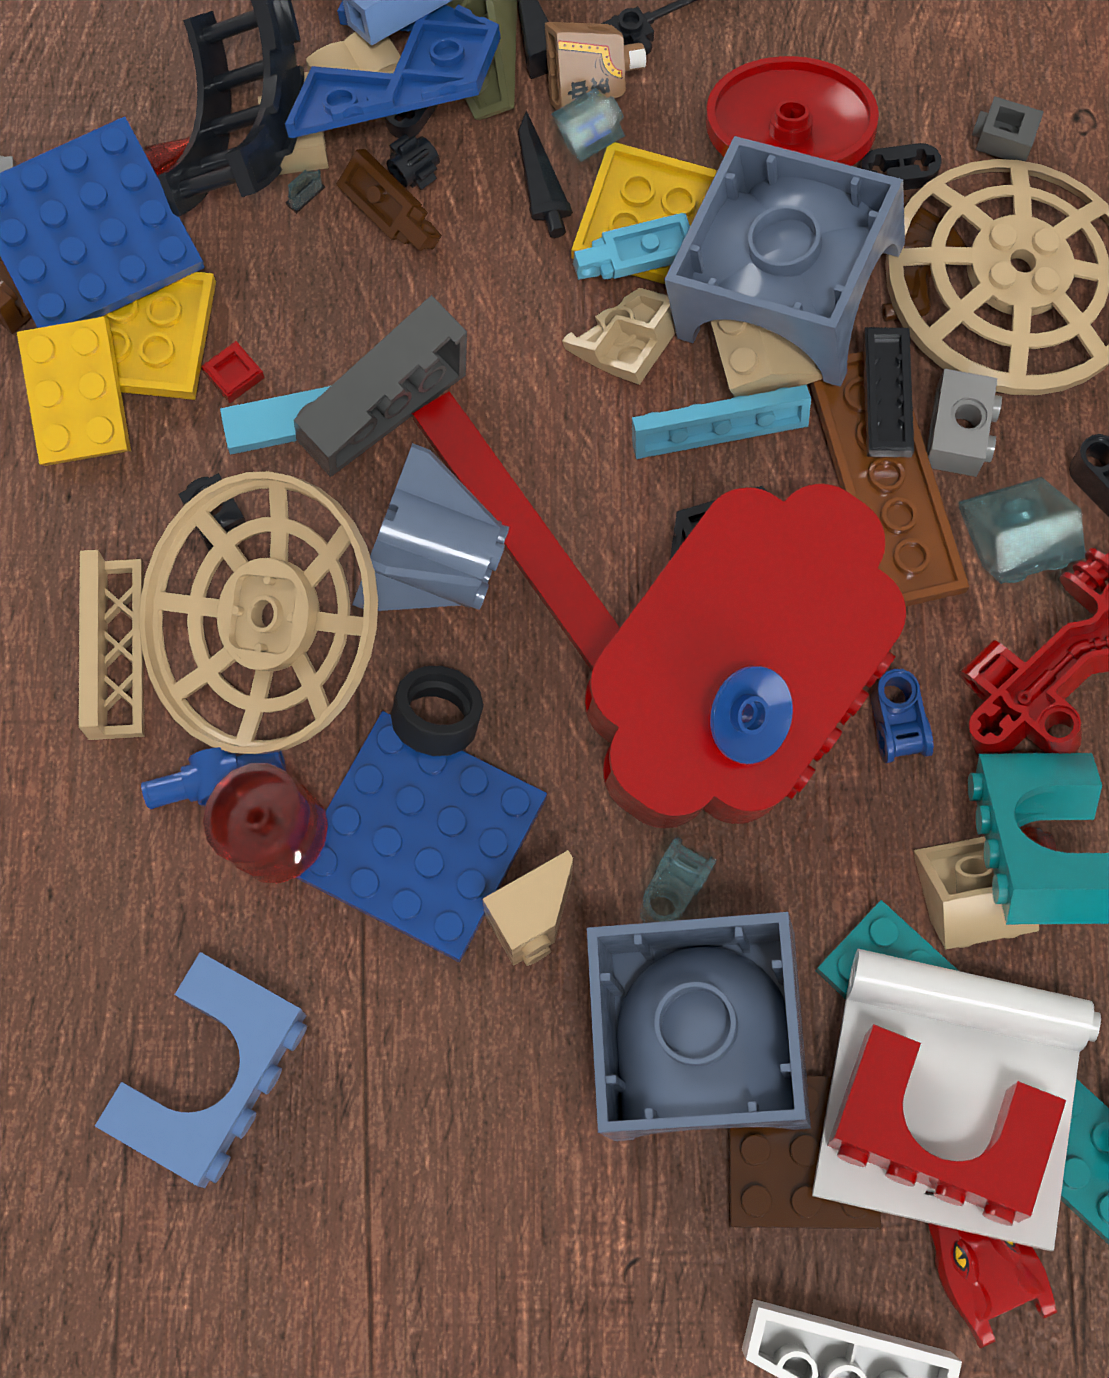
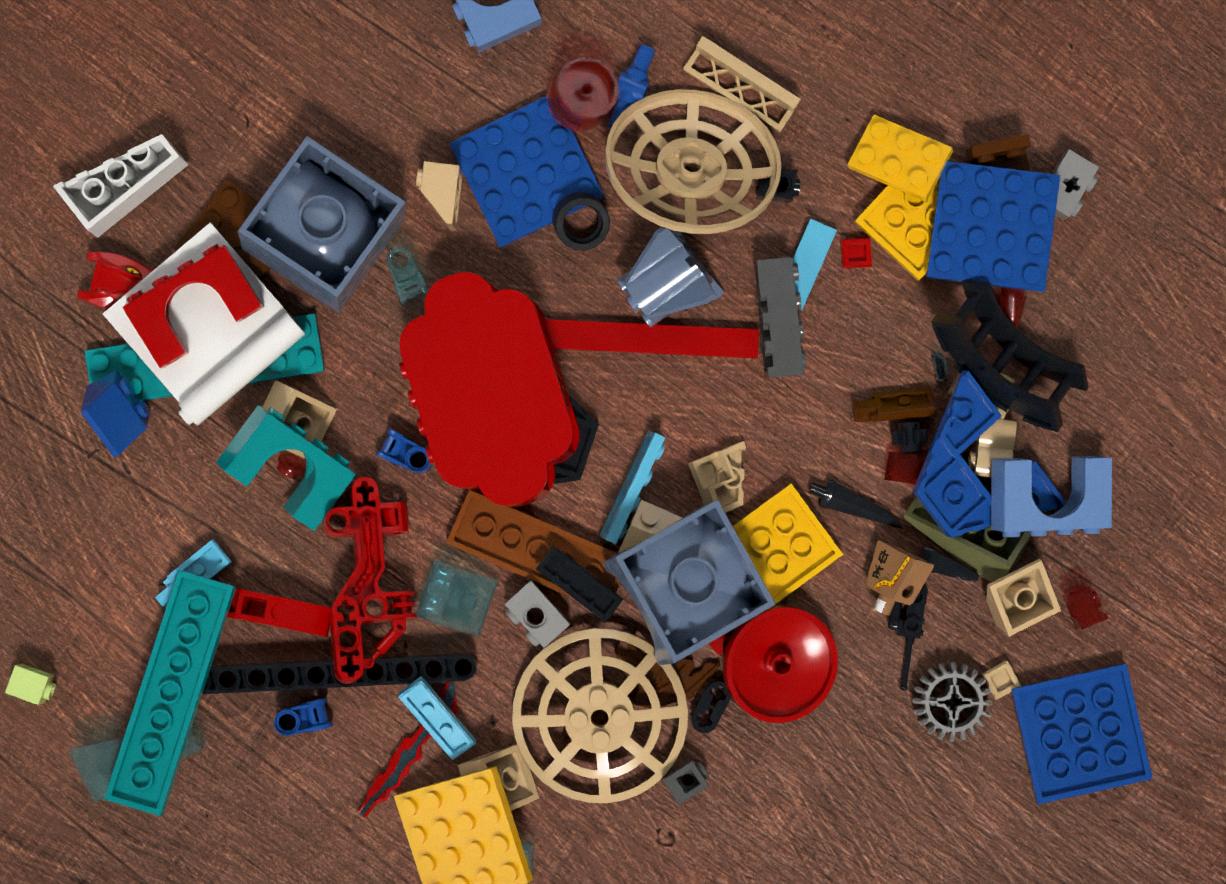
camera: 125 degrees right, 15 degrees up
(453, 140) = (903, 467): none -> clear red brick
(589, 123) = (859, 549): clear light blue brick -> none
(633, 248) = (761, 515): medium azure hinge -> none
(765, 716) = (447, 357): blue dish -> none

